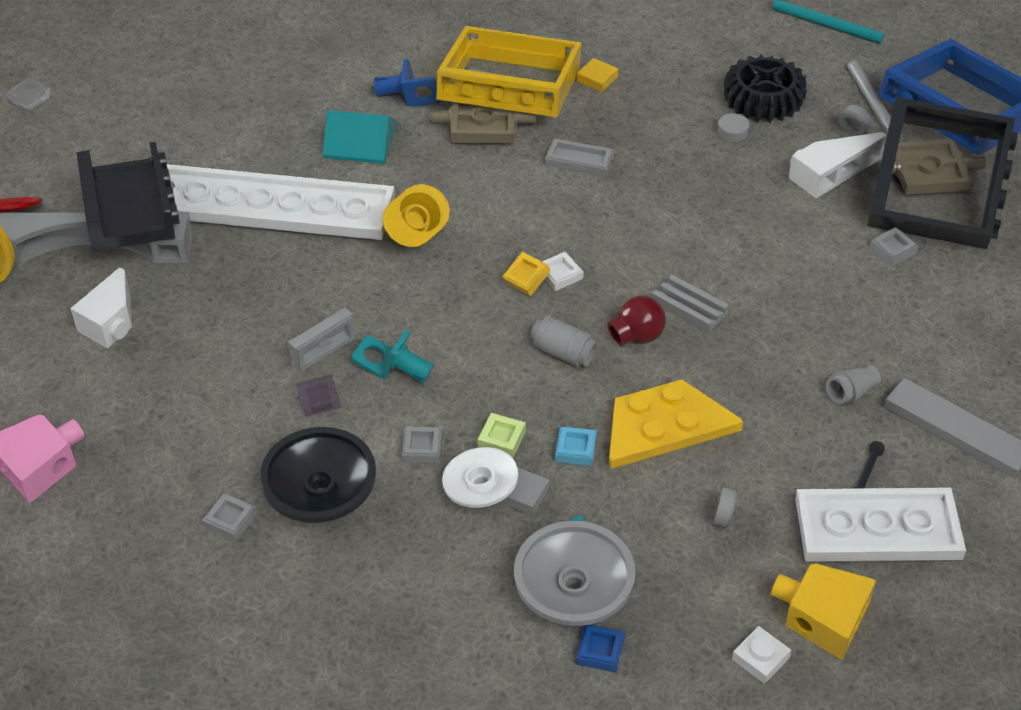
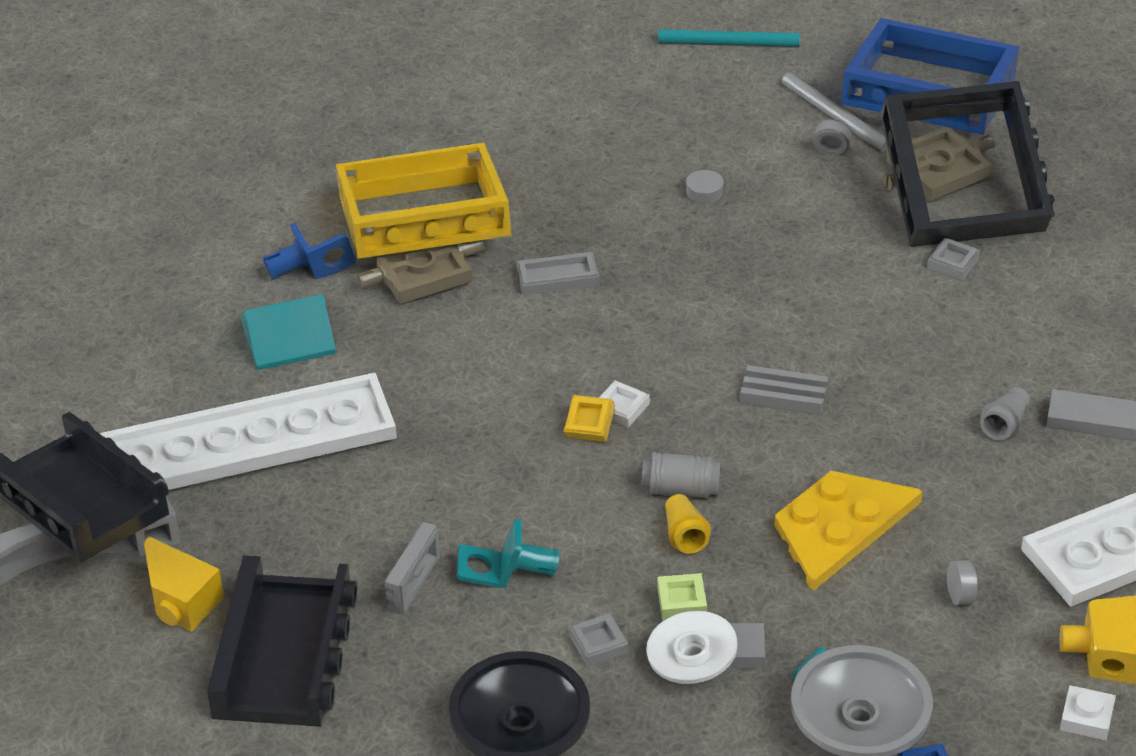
camera: 25 degrees left, 5 degrees down
(105, 311) = (132, 628): white slope -> none
(157, 293) = (181, 585): none -> yellow slope
(194, 361) = (281, 647): none -> black panel
(318, 395) = (446, 631): clear purple tile -> none
(416, 215) = (430, 394): yellow piece -> none
(542, 381) = (686, 525): none -> yellow cone
(575, 446) = (764, 580): medium azure tile -> none
(597, 75) = (517, 174): yellow tile -> none
(638, 321) = (746, 426): dark red piece -> none
(765, 88) = (714, 132): black gear -> none
(834, 161) = (838, 189): white slope -> none
(876, 449) = (1068, 471): black hinge -> none

